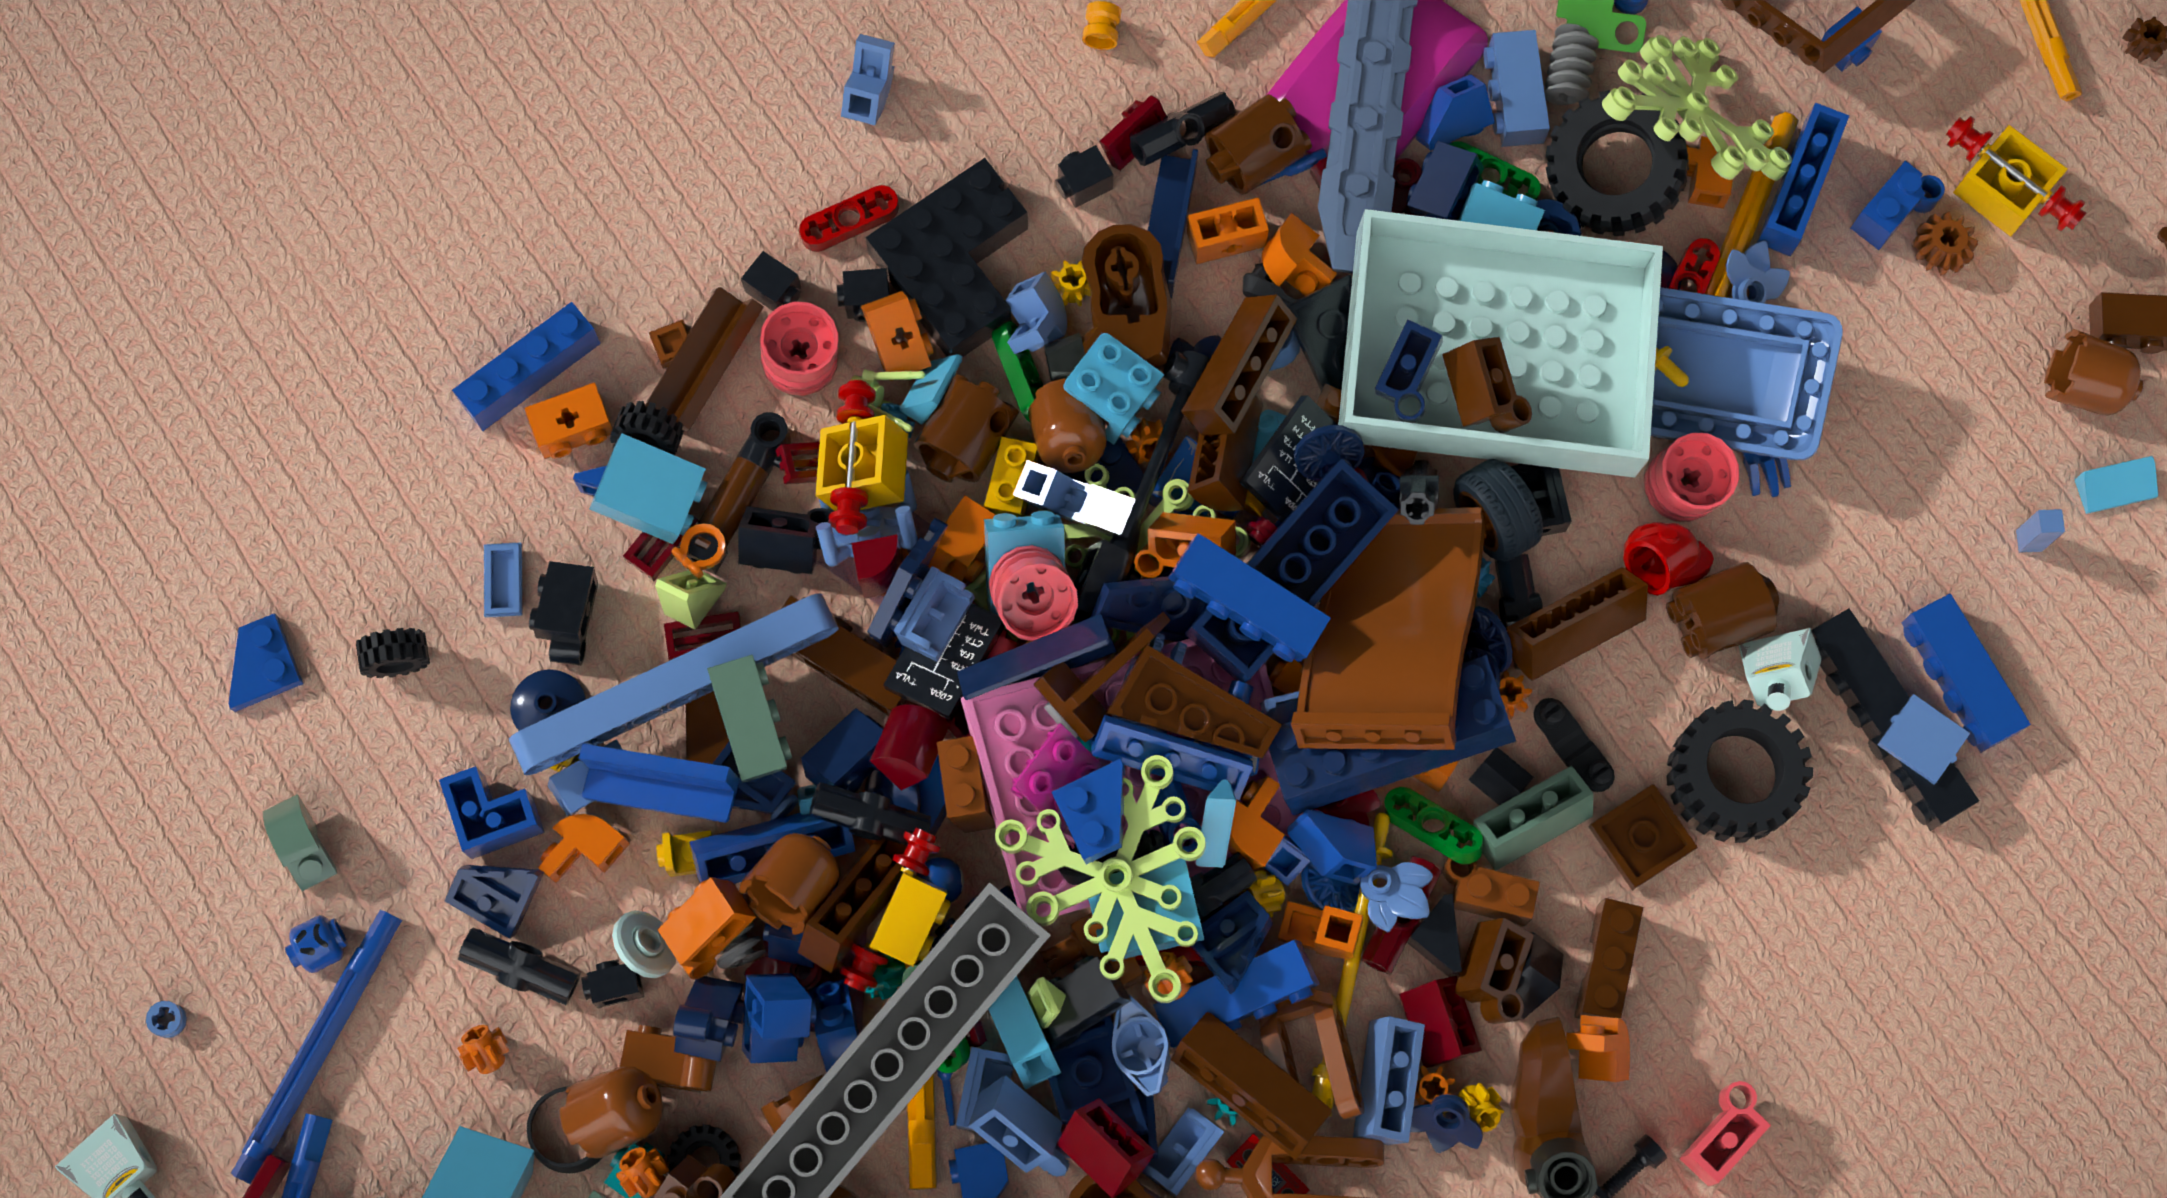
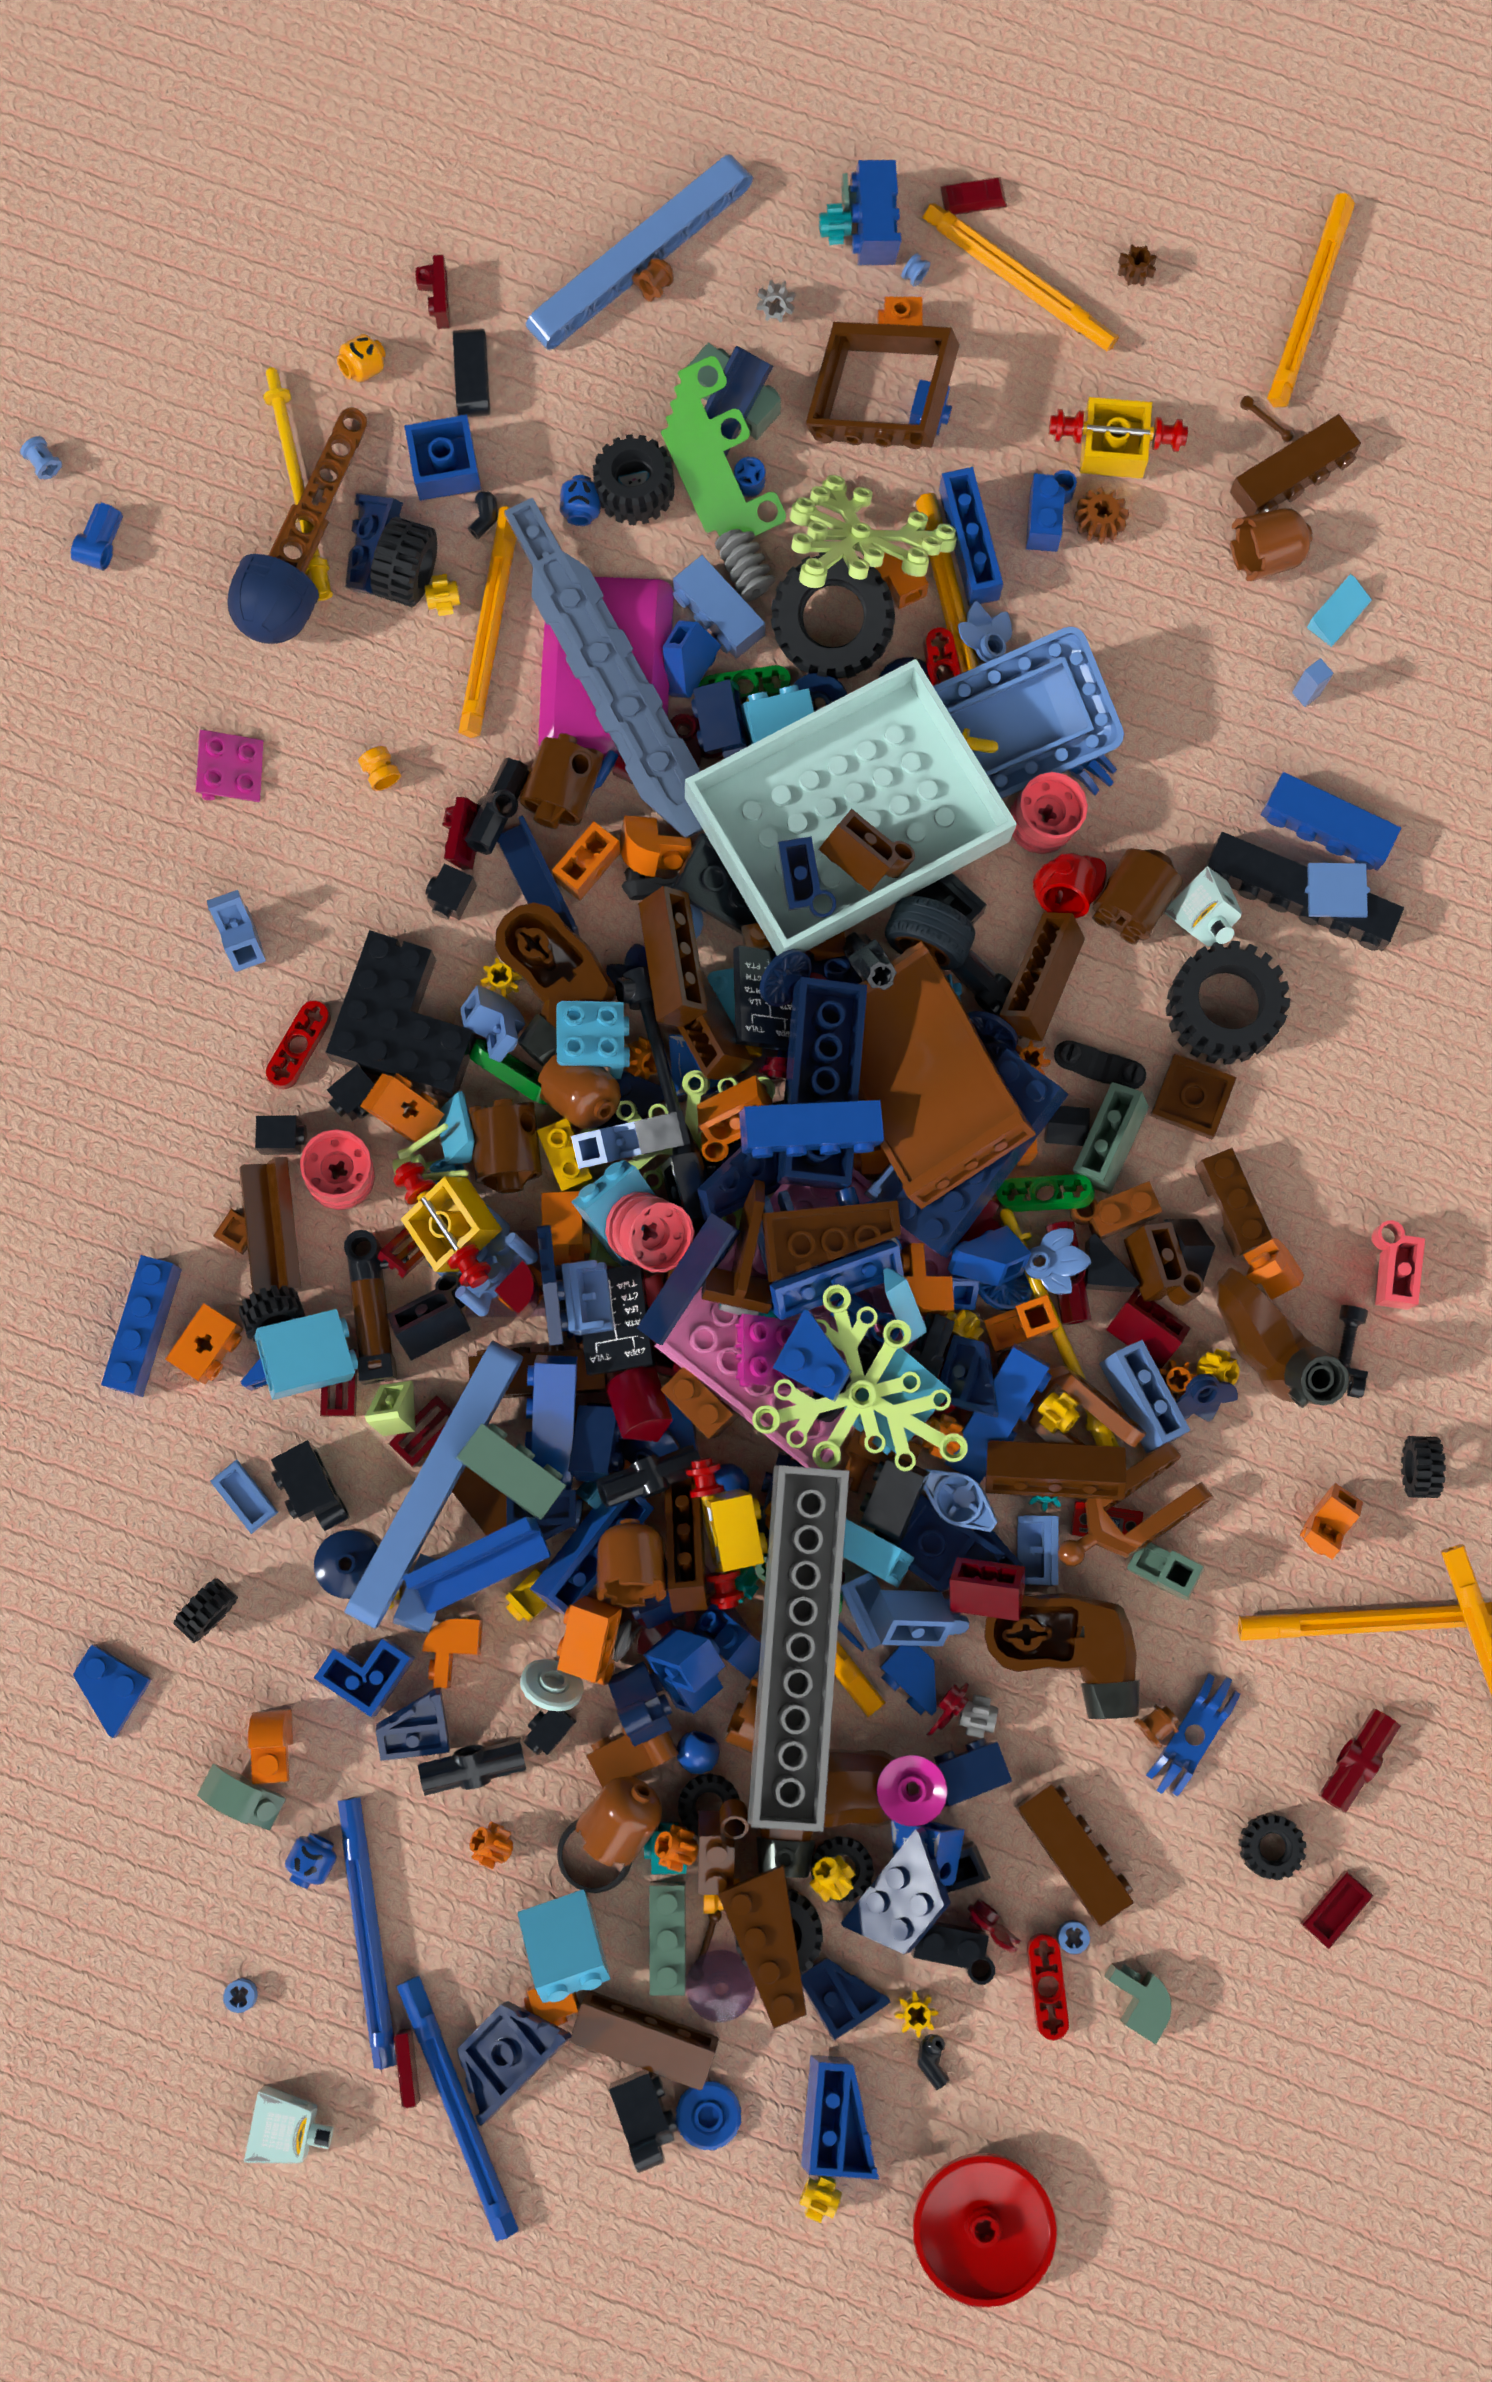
camera: 35 degrees left, 5 degrees up
(359, 808) = (269, 1740): none -> orange brick
(682, 552) = (365, 1383): orange piece -> none
(730, 1104) = (698, 1752): none -> blue piece
(826, 697) = (552, 1412): none -> blue brick
(1045, 1001) = (874, 1518): yellowish green slope -> none
(1294, 1034) = (1058, 1412): none -> yellow gear

